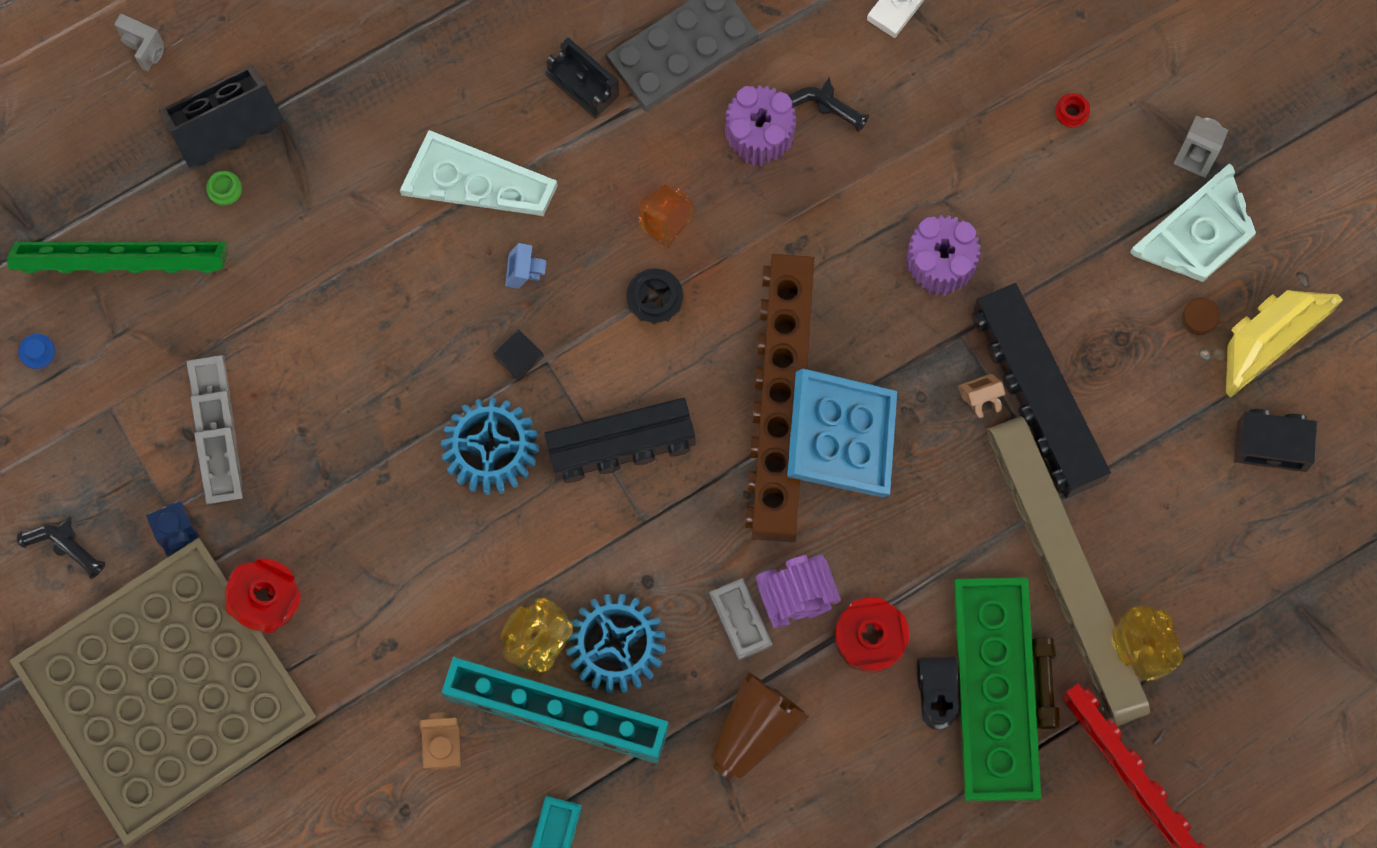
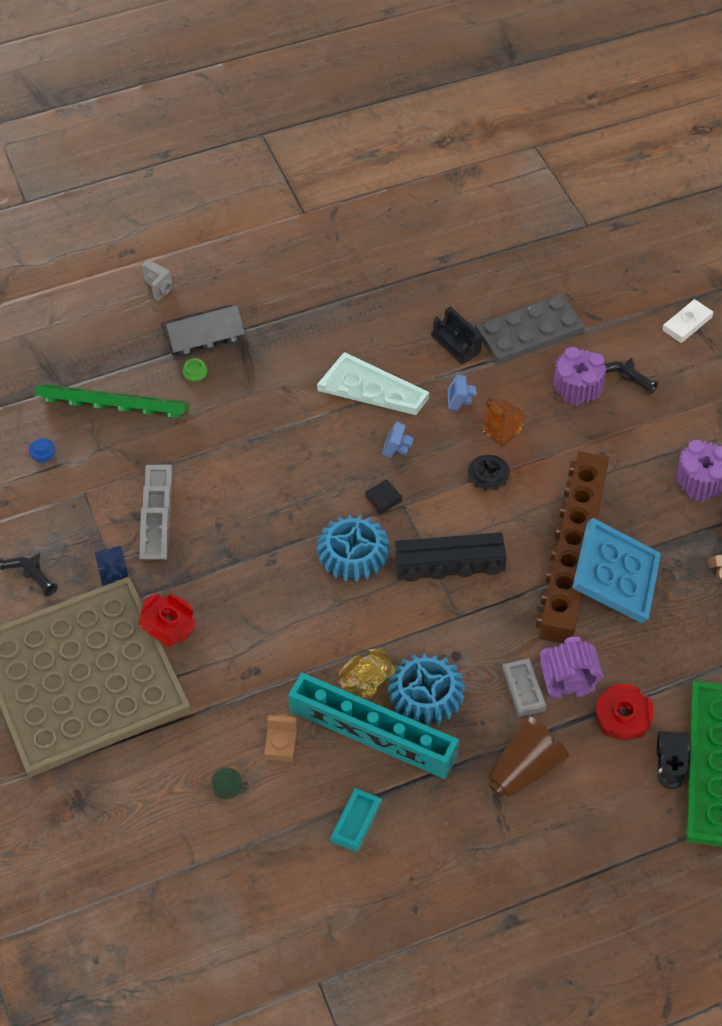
camera: 10 degrees right, 20 degrees down
(382, 814) = (227, 783): none -> clear green tile
(598, 174) = (460, 393): none -> medium blue tile

